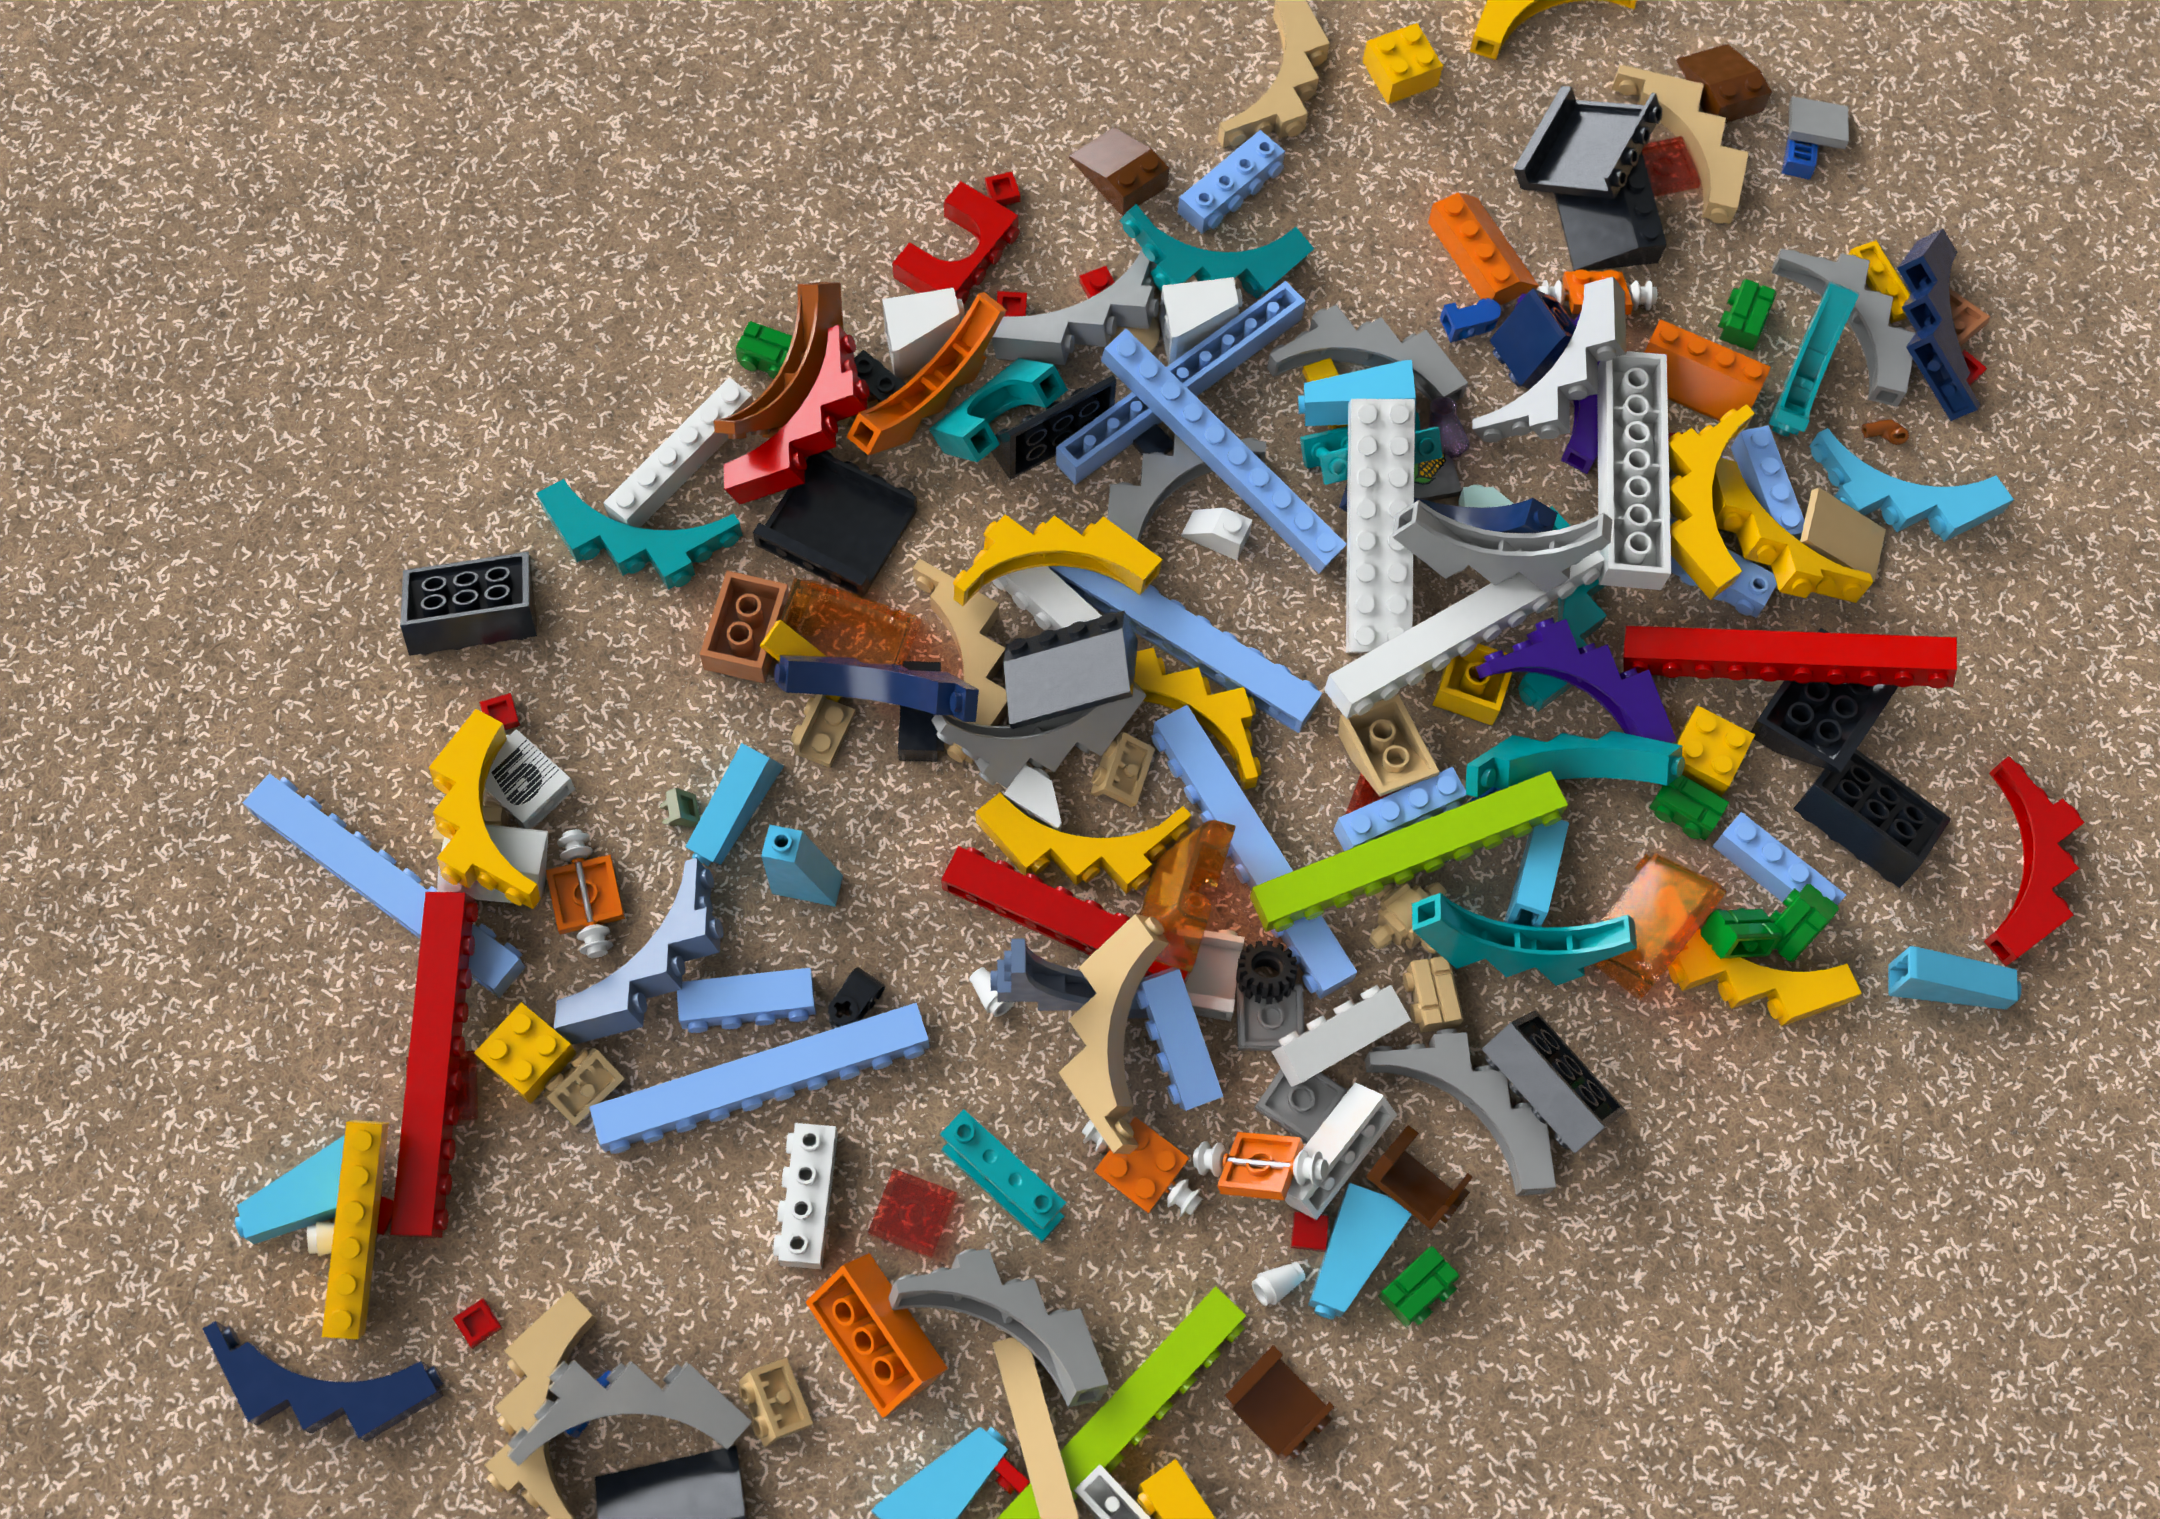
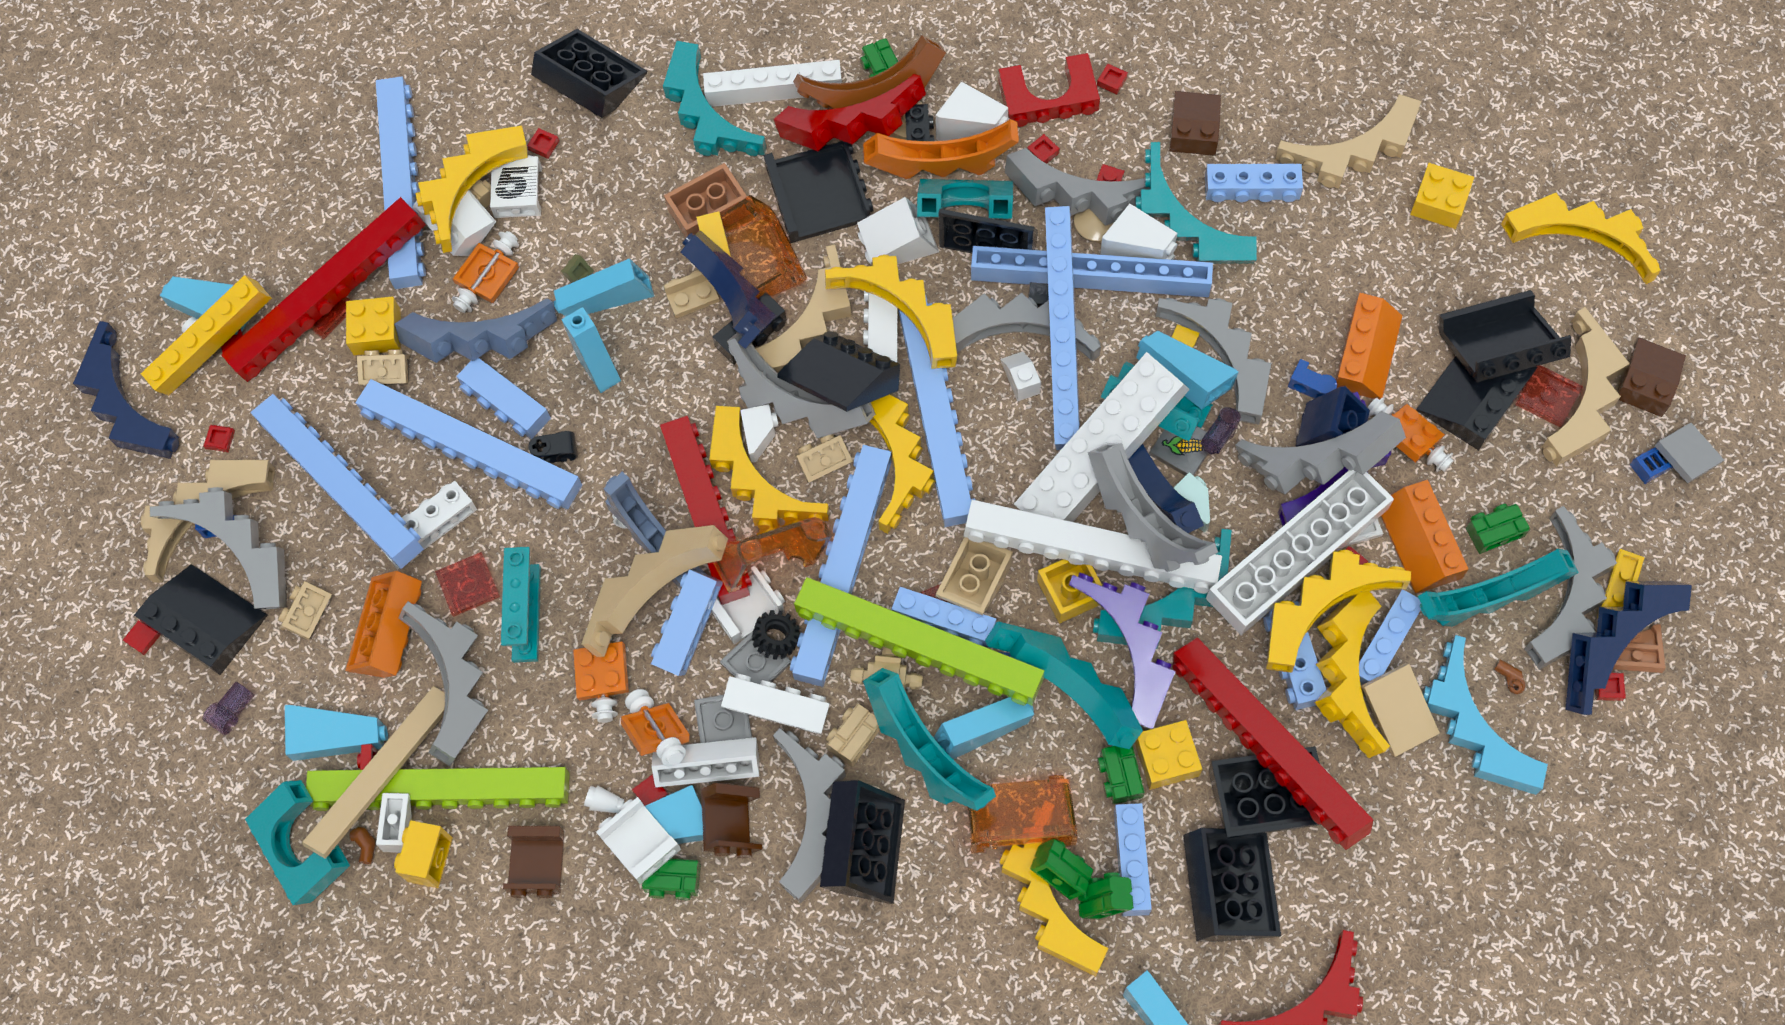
camera: 55 degrees right, 0 degrees up
(670, 1238) = (337, 481): none -> light blue brick
(963, 502) = (897, 233): none -> white slope
(1365, 1282) = (638, 840): none -> white panel

